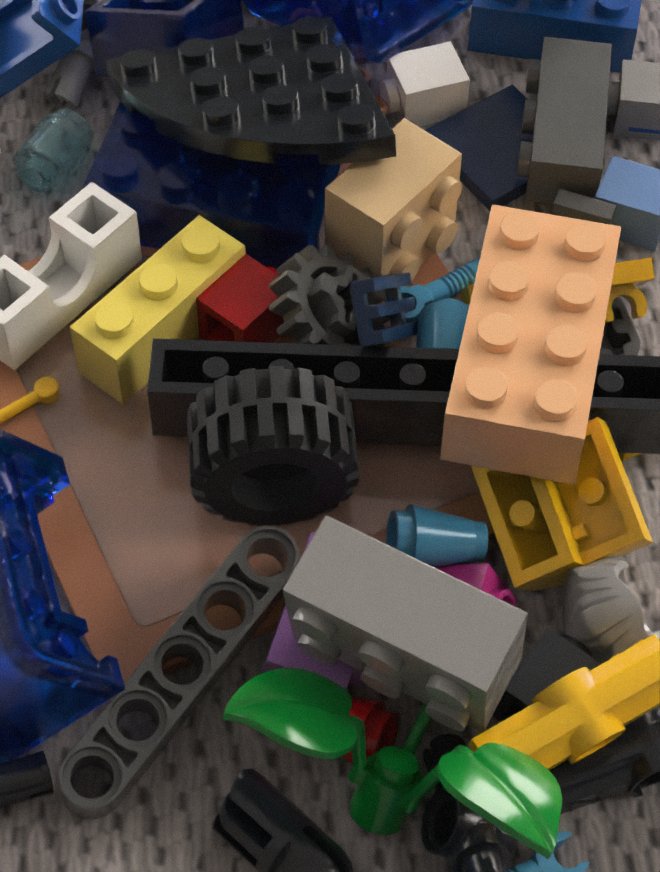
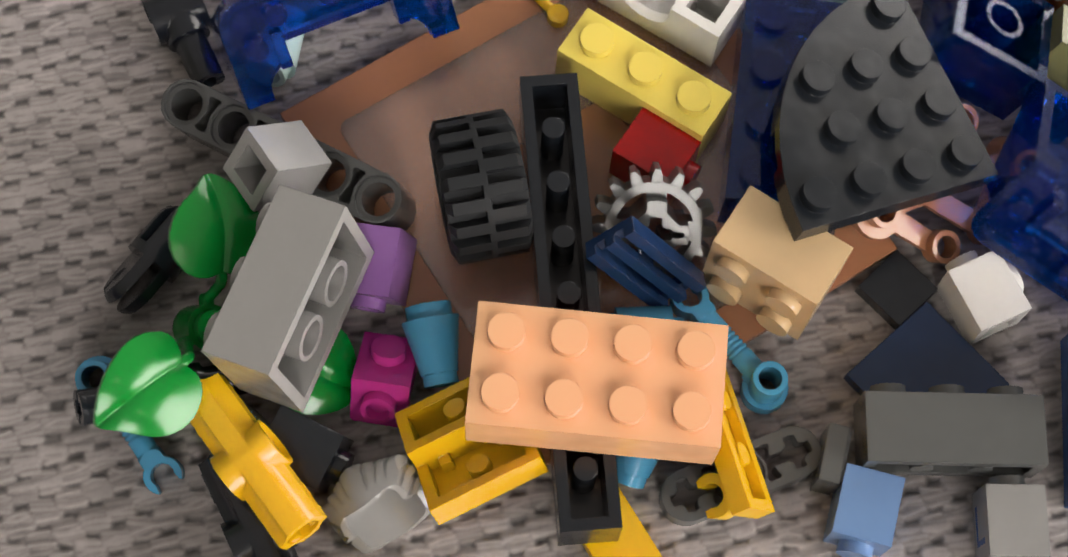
camera: 80 degrees right, 15 degrees up
(225, 636) = (275, 157): none -> light grey brick

